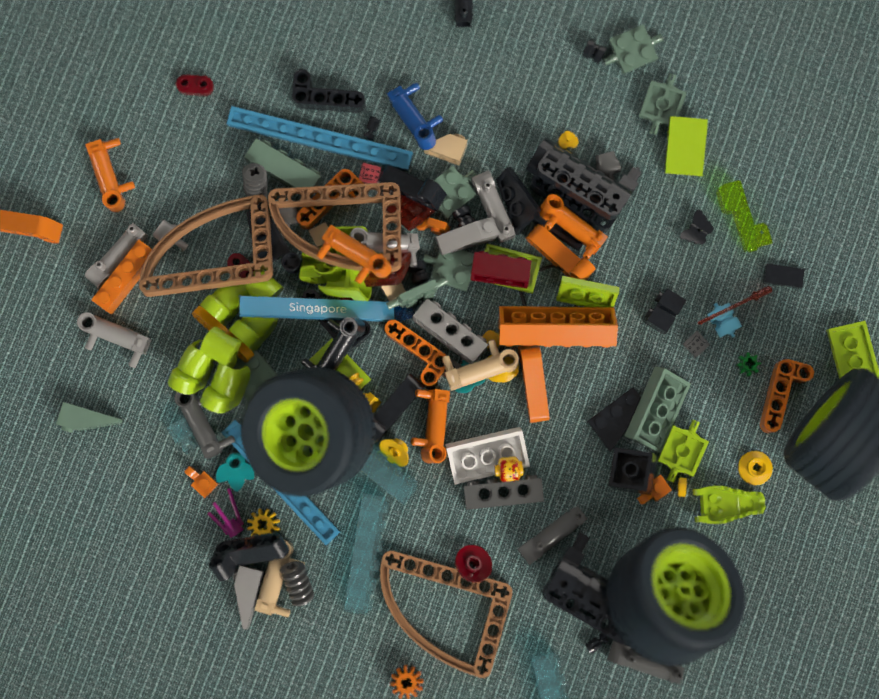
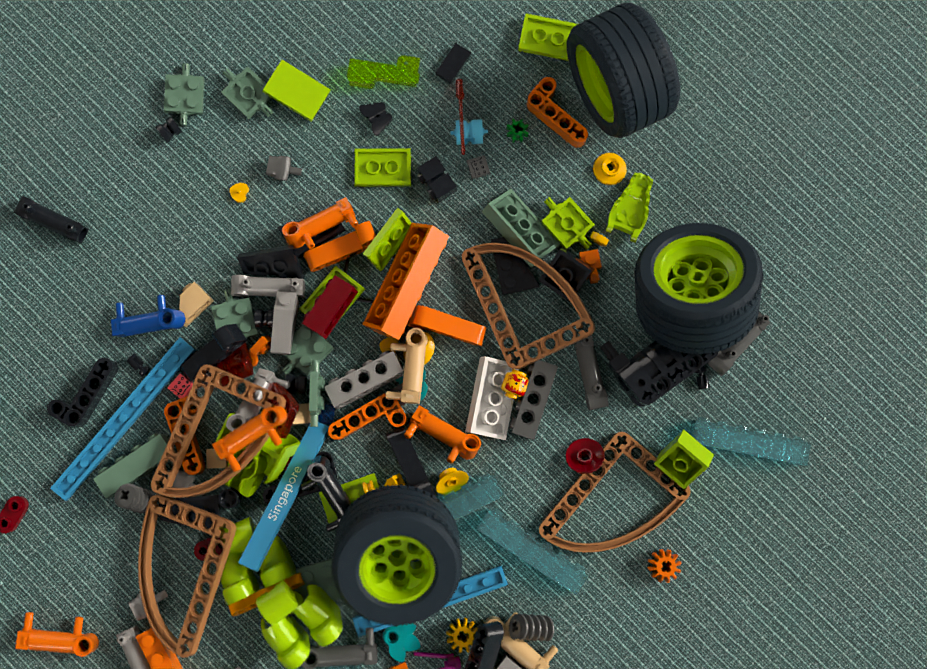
camera: 75 degrees left, 0 degrees up
(512, 656) = (684, 459): none -> lime brick
(567, 427) = (493, 297): none -> medium nougat beam
(580, 184) = (285, 199): black piece -> none
(653, 257) = (382, 167): none -> lime tile

